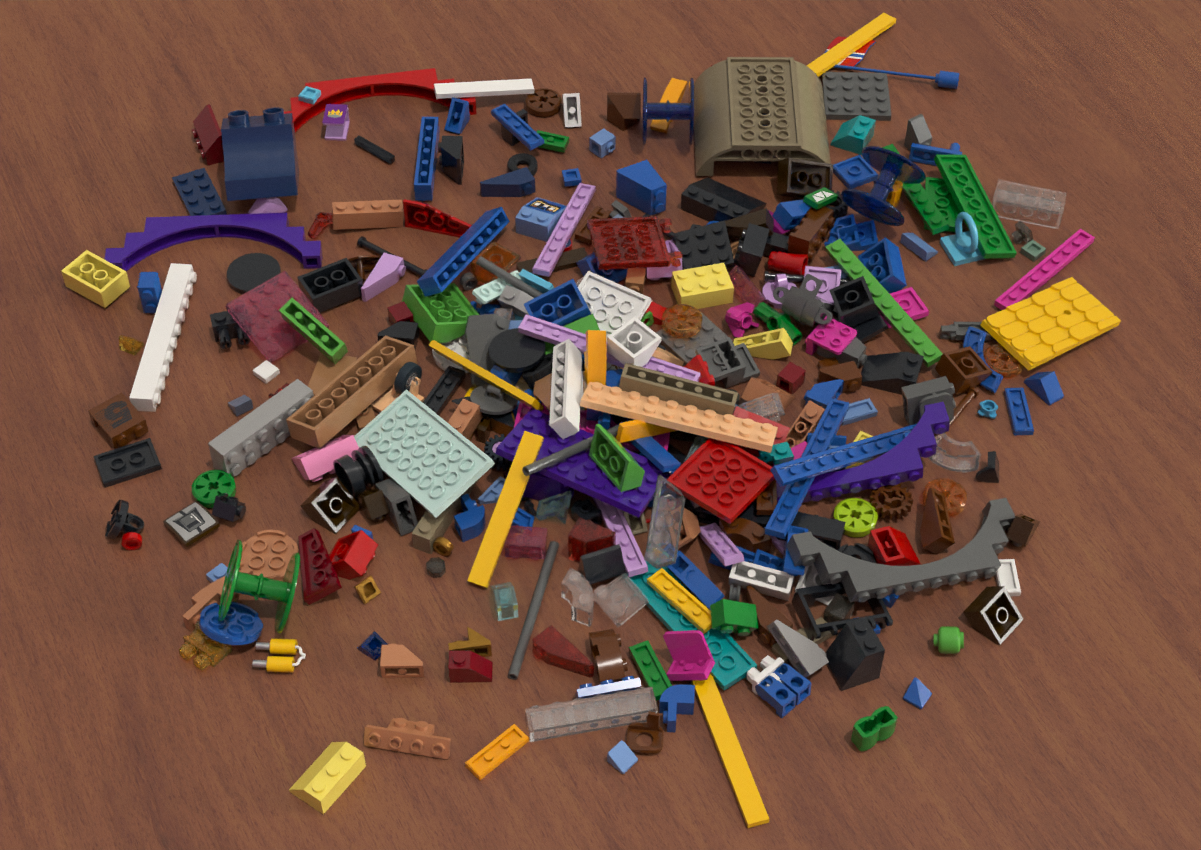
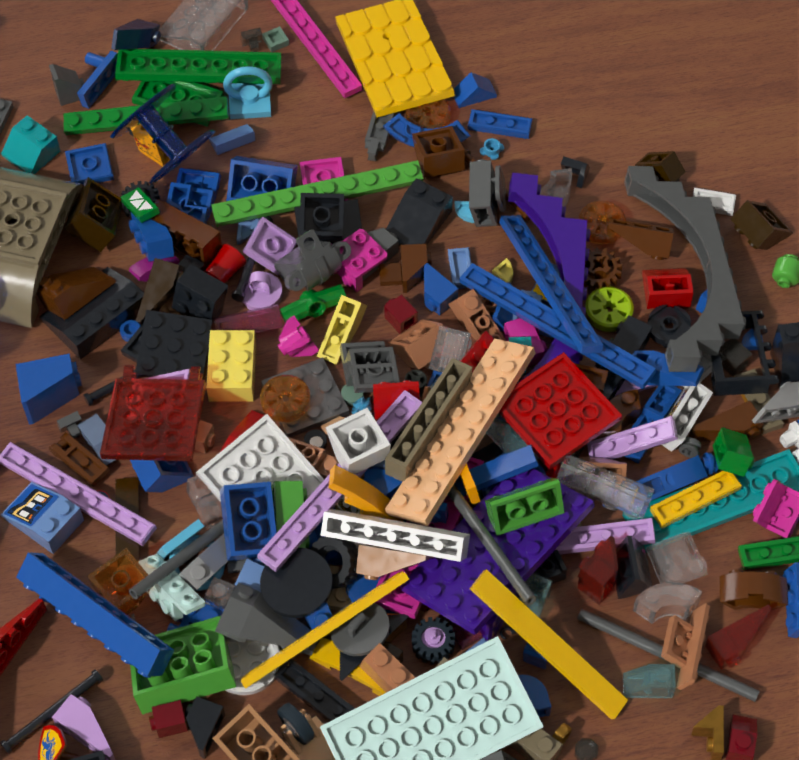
camera: 75 degrees left, 10 degrees up
(526, 542) = (579, 634): clear pink brick -> none
(542, 608) = (684, 644): none -> nougat bracket
(731, 181) = (72, 290): none -> reddish brown slope
(982, 159) = (136, 35): none -> dark blue slope

